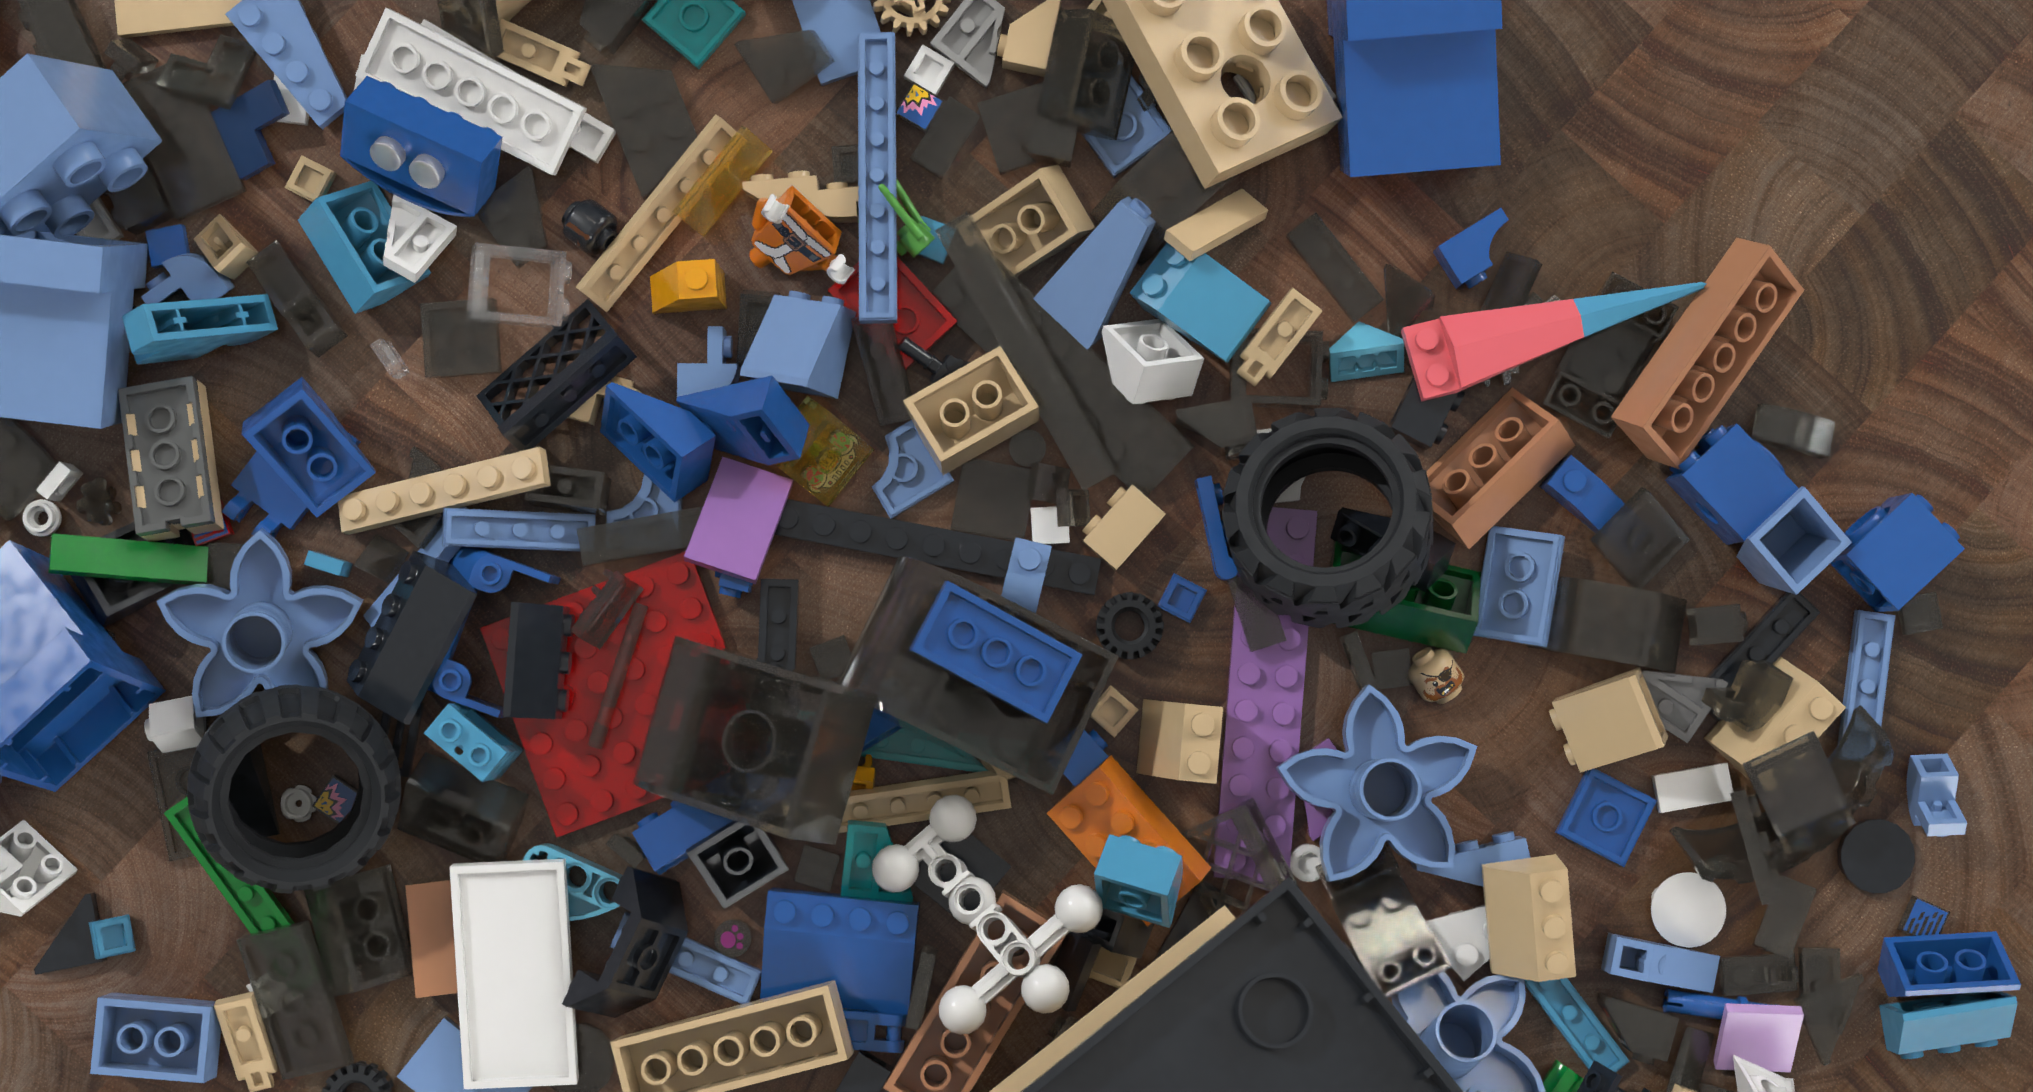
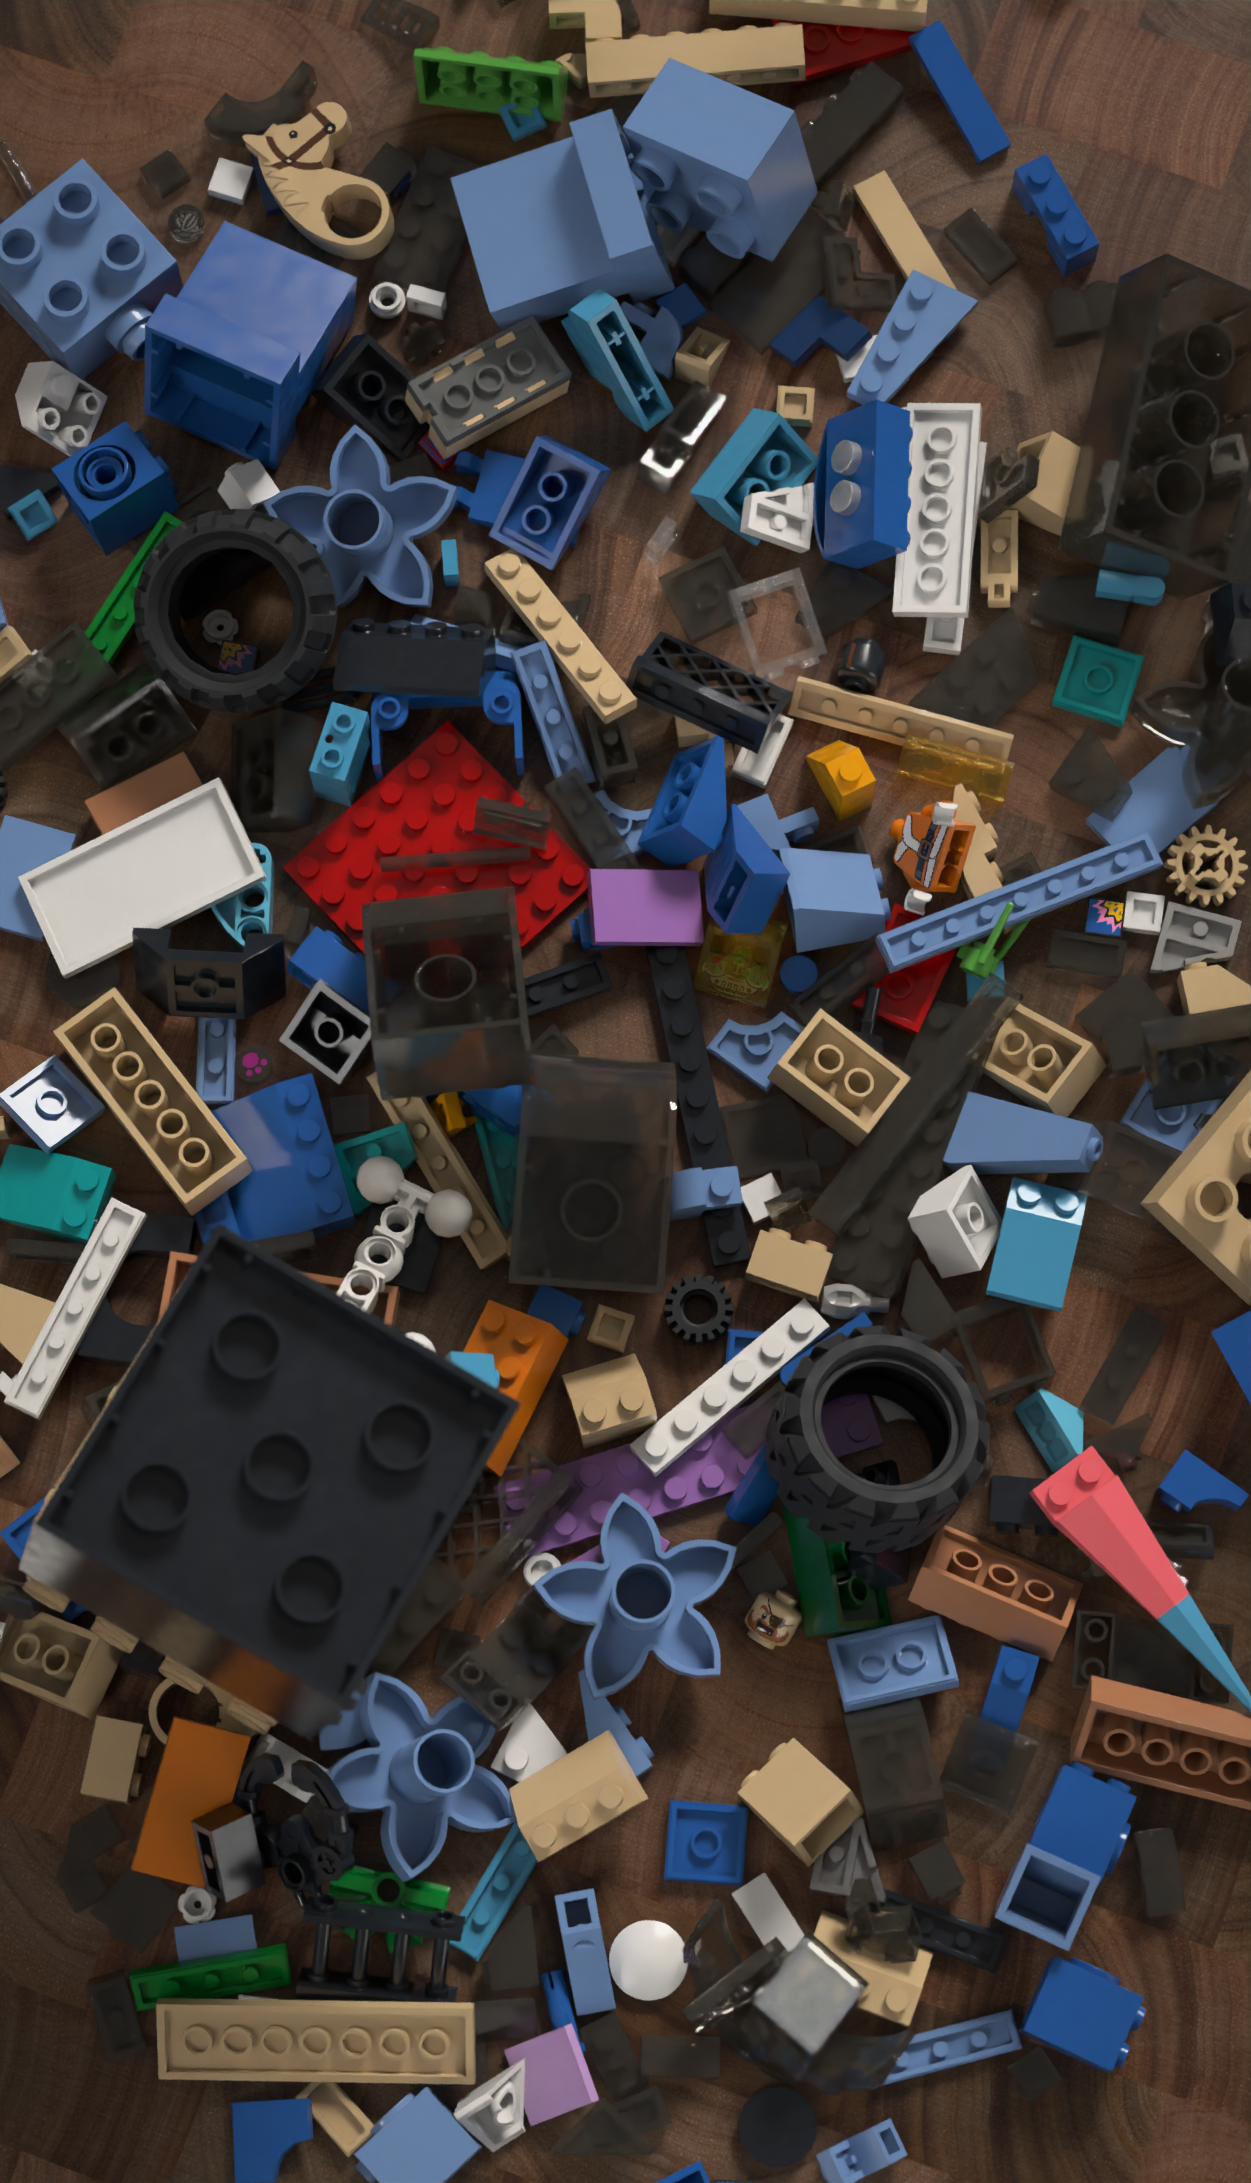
camera: 65 degrees right, 10 degrees down
(120, 848) = (117, 487): none -> blue brick
(128, 559) = (381, 387): green tile -> none
(537, 661) = (438, 778): black slope -> none
(648, 360) = (759, 767): none -> white tile
(856, 406) = (798, 974): none -> blue tile
(995, 652) = (619, 1171): blue plate -> none
(1178, 486) = (849, 1301): none -> light grey piece
(1213, 627) = (729, 1387): none -> white plate
(1215, 224) = (1113, 1231): tan tile -> none
(1278, 337) = (1031, 1330): tan hinge -> none
(1317, 647) = (754, 1493): none -> blue slope

